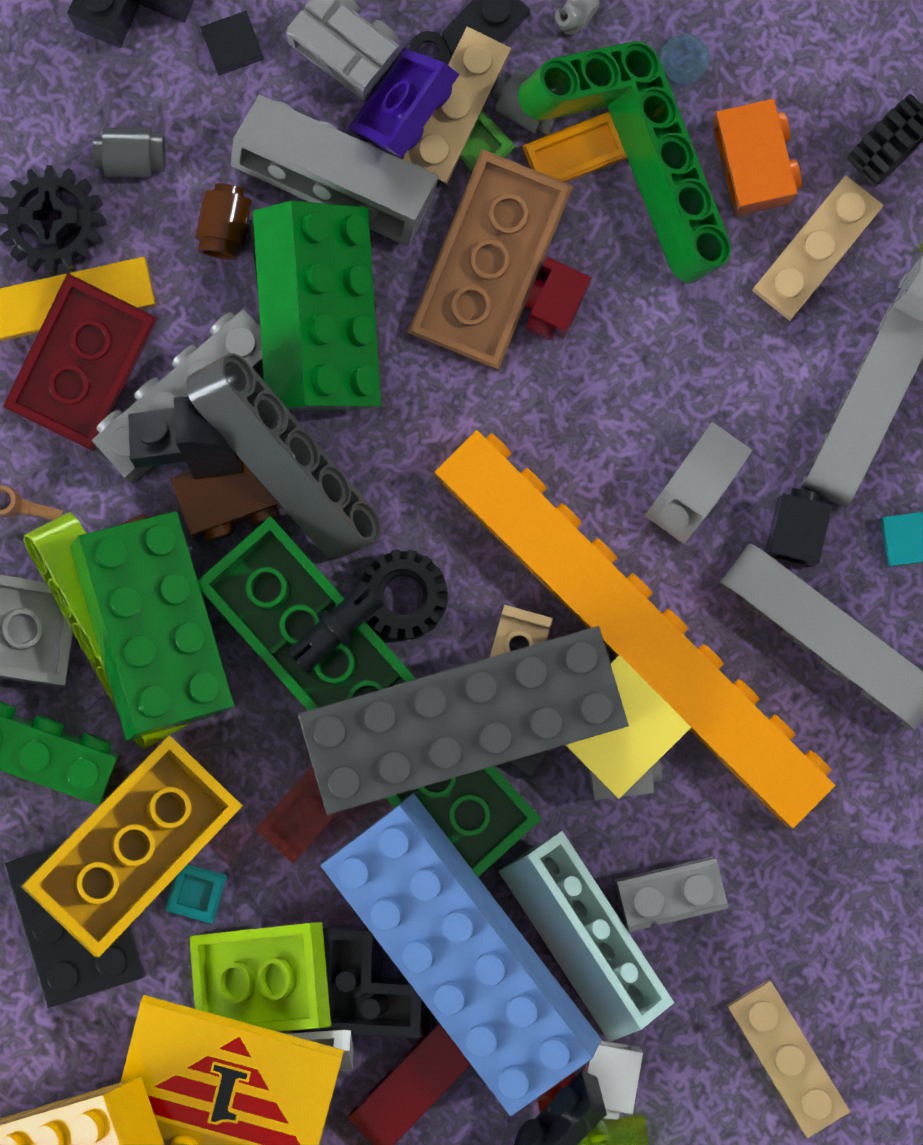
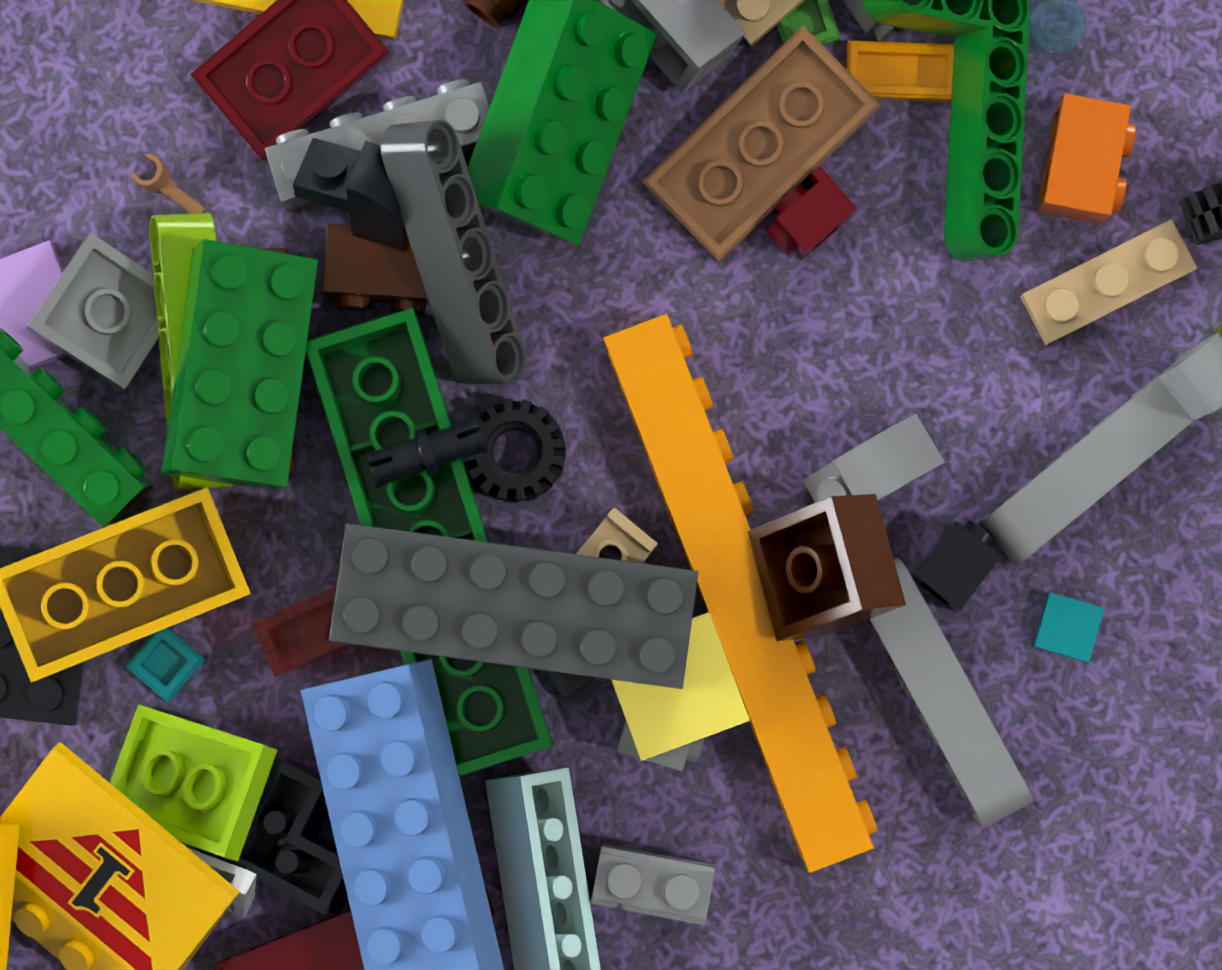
camera: 25 degrees right, 0 degrees up
(697, 576) = (826, 567): none -> reddish brown brick

